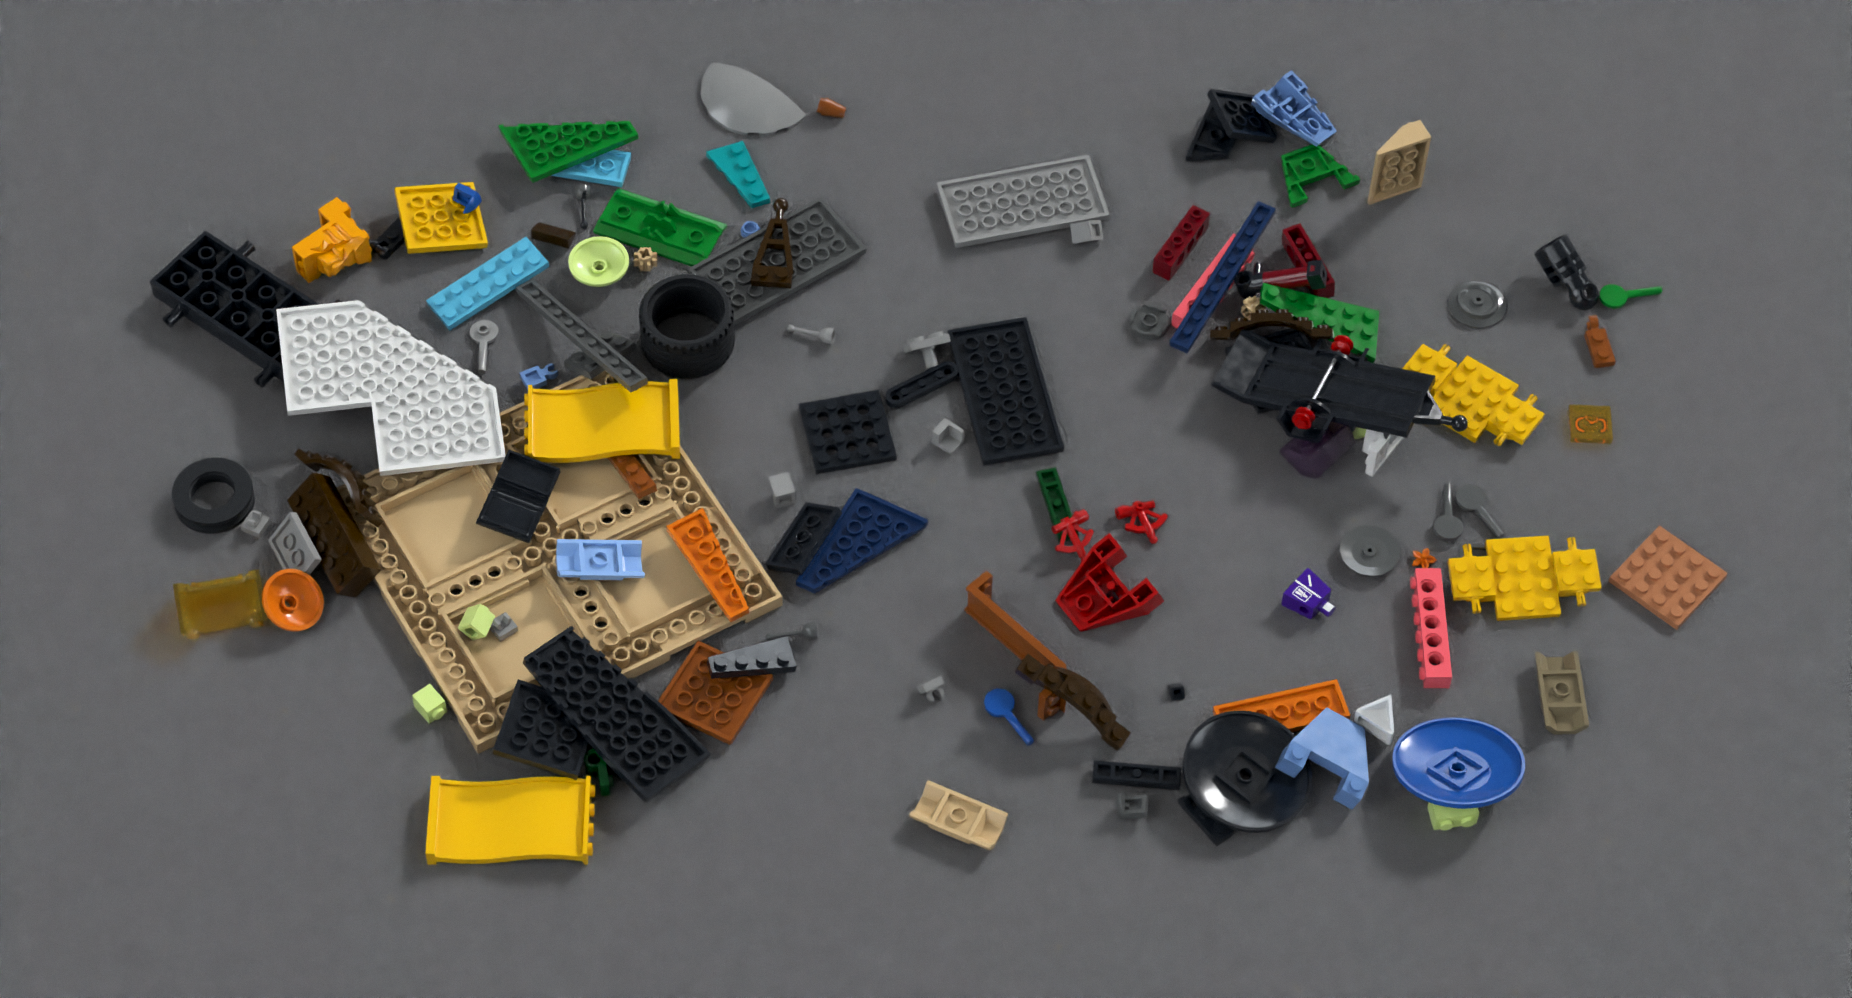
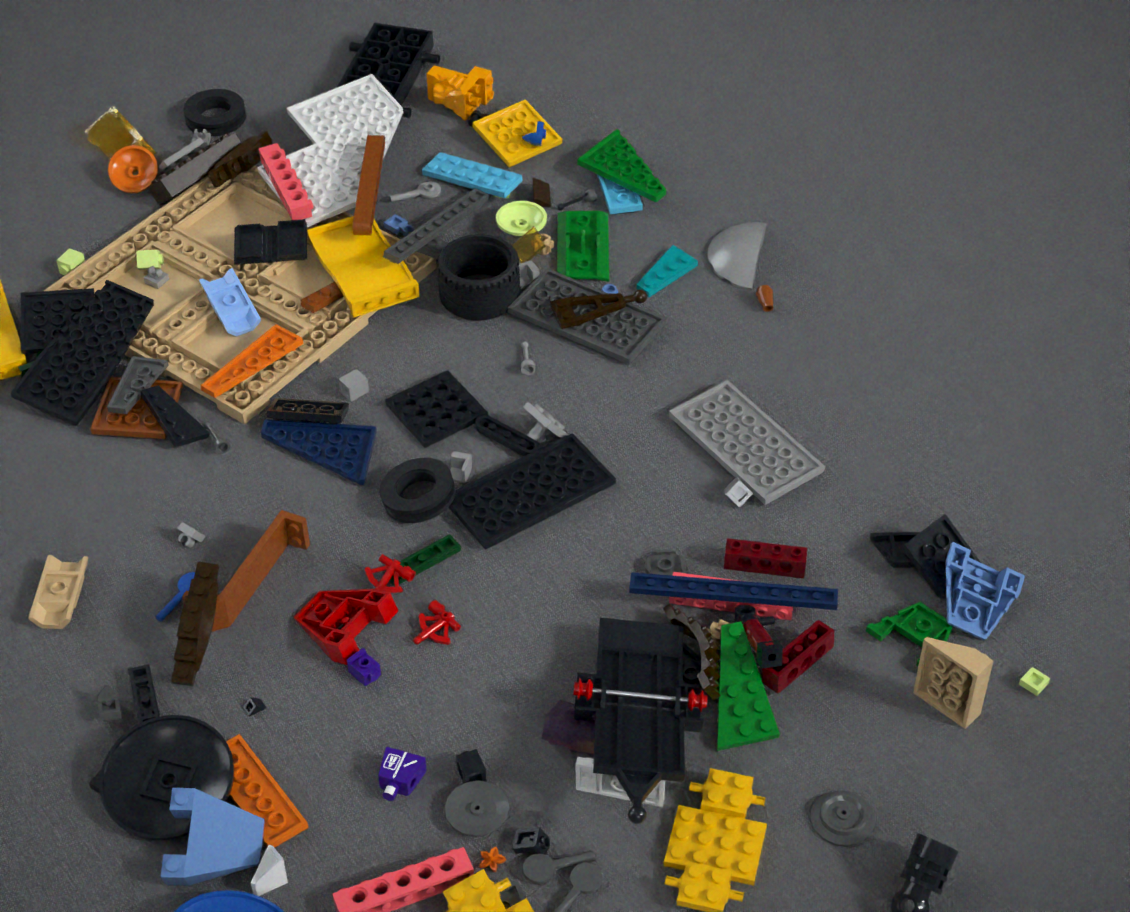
camera: 70 degrees right, 10 degrees down
(426, 455) = (286, 182): none -> coral brick
(490, 370) = (369, 185): none -> dark orange beam
(644, 270) = (529, 245): none -> clear yellow piece
(683, 678) = (138, 376): none -> dark grey wing
(971, 504) = (421, 508): none -> black tyre
(1174, 588) = (363, 667): none -> dark purple brick
(1325, 541) = (470, 766): none -> black brick
(1397, 117) = (1034, 681): none -> yellowish green plate
(1420, 523) = (531, 840): none -> black bracket

